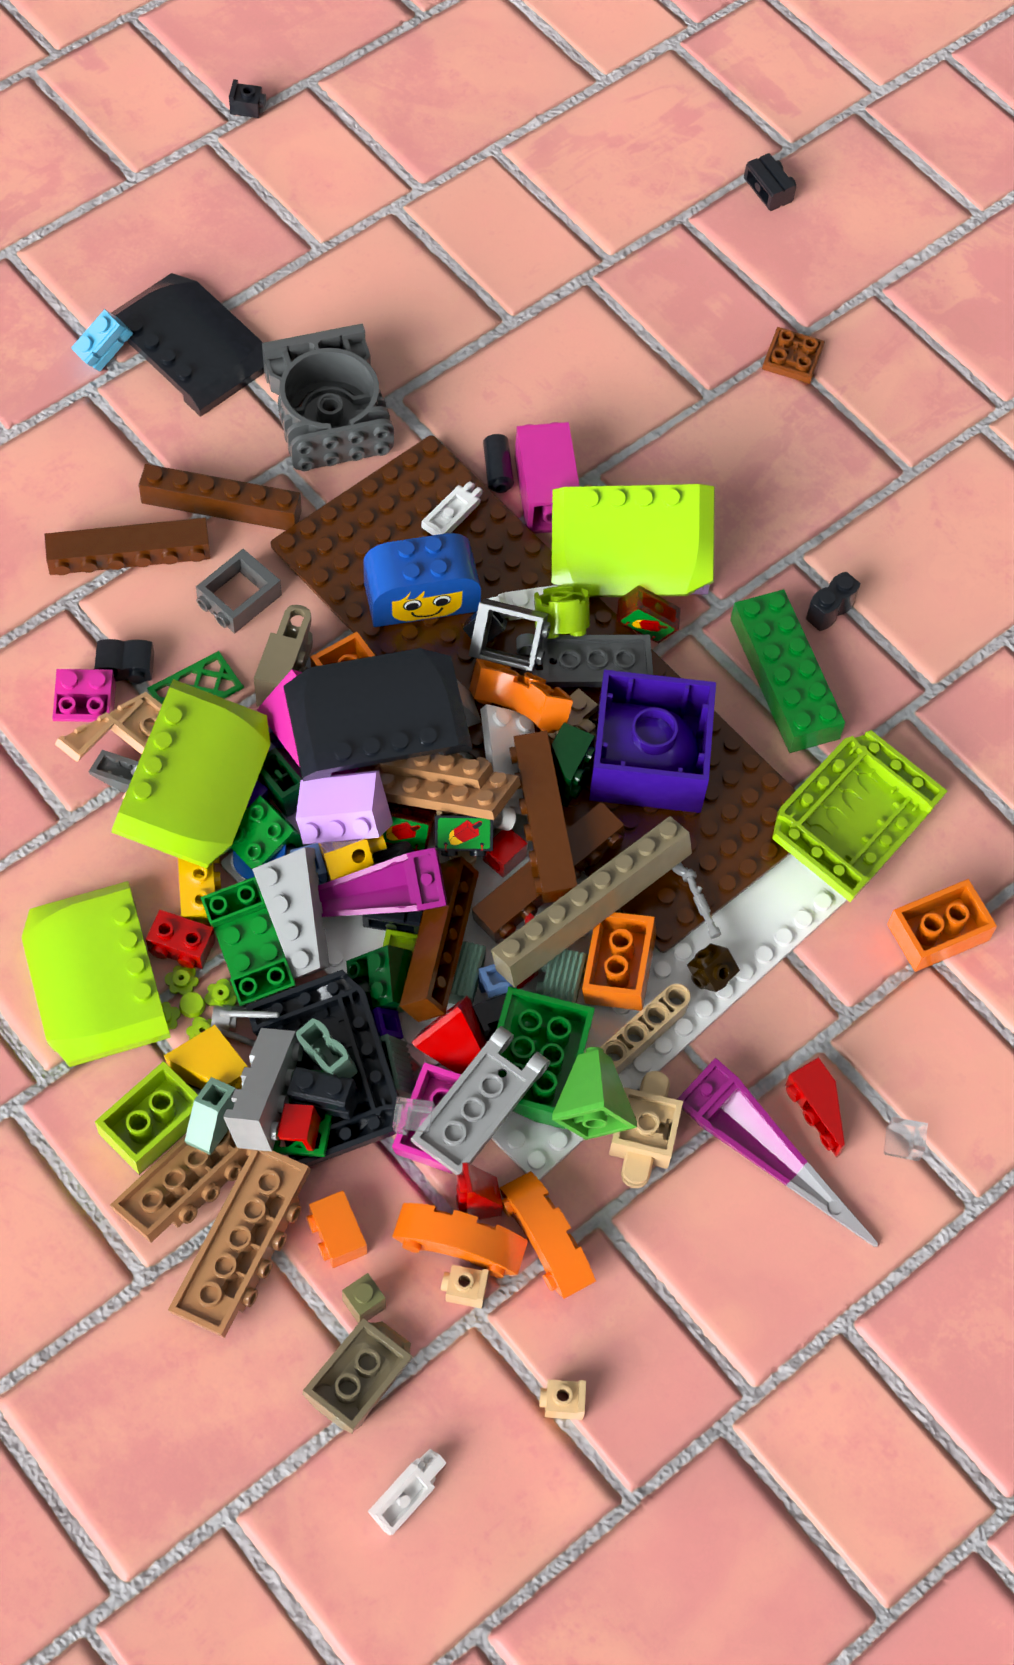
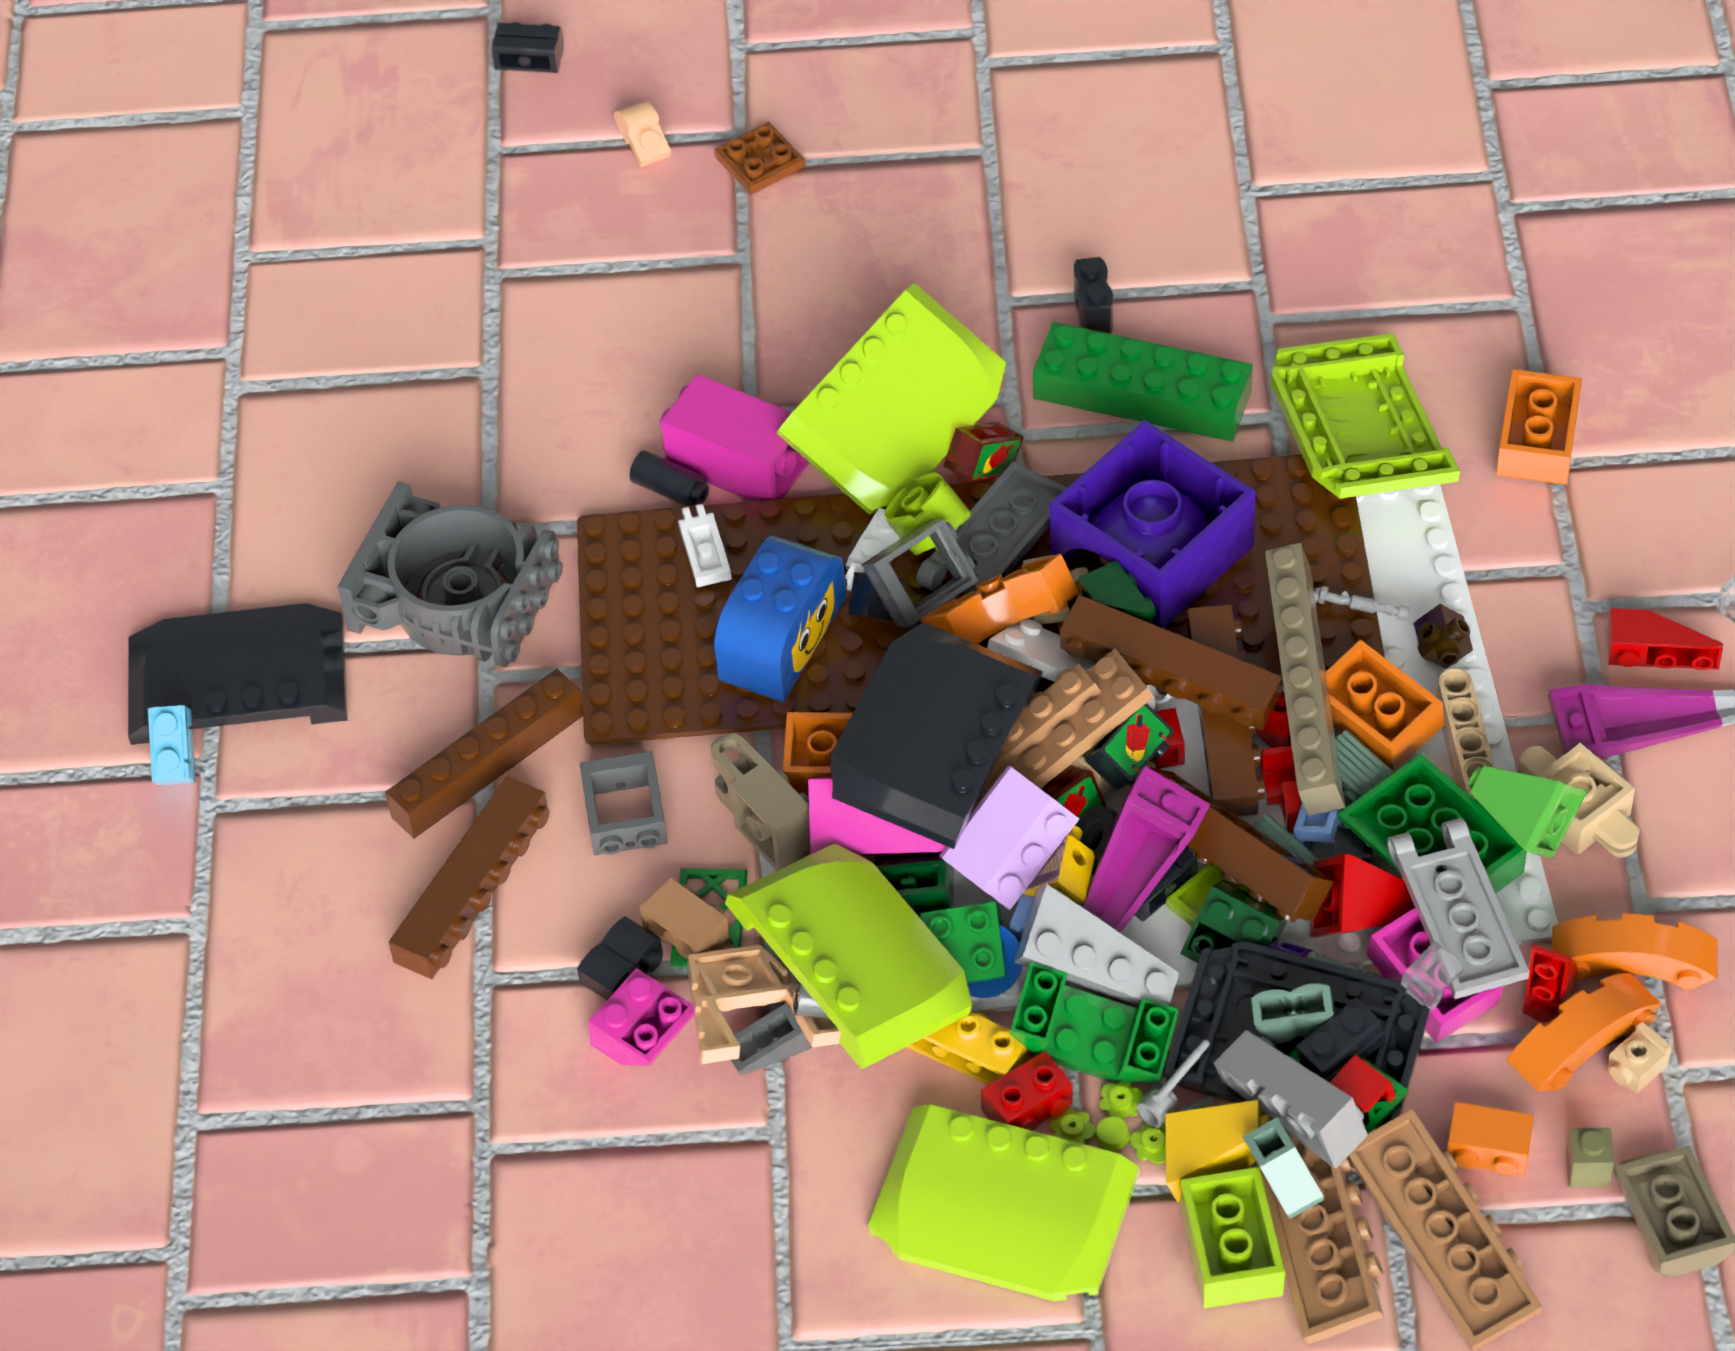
camera: 45 degrees left, 10 degrees down
(172, 663) = (684, 919): none -> medium nougat brick
(756, 280) = (641, 130): none -> light nougat brick

